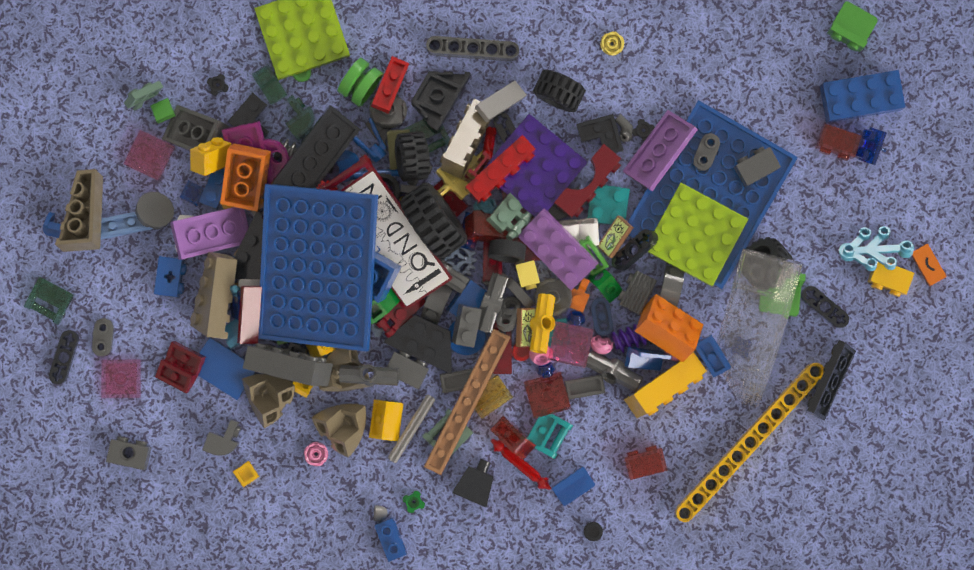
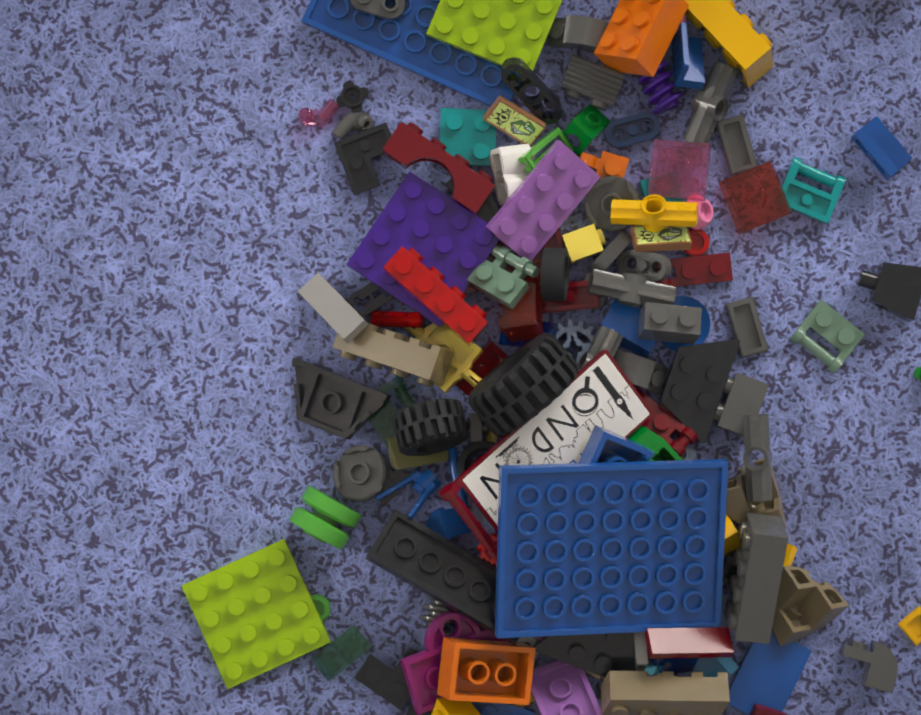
camera: 100 degrees left, 0 degrees up
(303, 121) = (391, 596): clear green brick -> none
(310, 457) = (886, 523): bright pink plate -> none
(342, 426) = (832, 491): dark tan brick -> none
(386, 420) = (817, 429): yellow panel -> none
(390, 84) = (324, 473): red plate -> none
(411, 428) = (824, 390): light grey axle -> none
(464, 43) = (253, 344): dark grey beam -> none
(467, 402) = (779, 312): medium nougat tile -> none
(470, 174) = (426, 324): dark red piece -> none
(487, 206) = (492, 307): medium azure plate -> none
(493, 397) = (767, 280): clear yellow panel -> none
(513, 437) = (824, 239): clear red brick -> none
(522, 465) = (859, 226): red wheel -> none
(546, 370) = (719, 202): clear blue plate -> none
(559, 90) = (309, 222): black tyre -> none
(576, 318) = (639, 166): clear blue plate -> none
(601, 345) = (673, 125): bright pink plate -> none
(616, 39) = (220, 152): light yellow plate -> none
(631, 106) = (318, 118): none -> clear pink arm
(645, 463) = (837, 46): clear red brick -> none
(660, 150) = (381, 68): medium lavender plate -> none

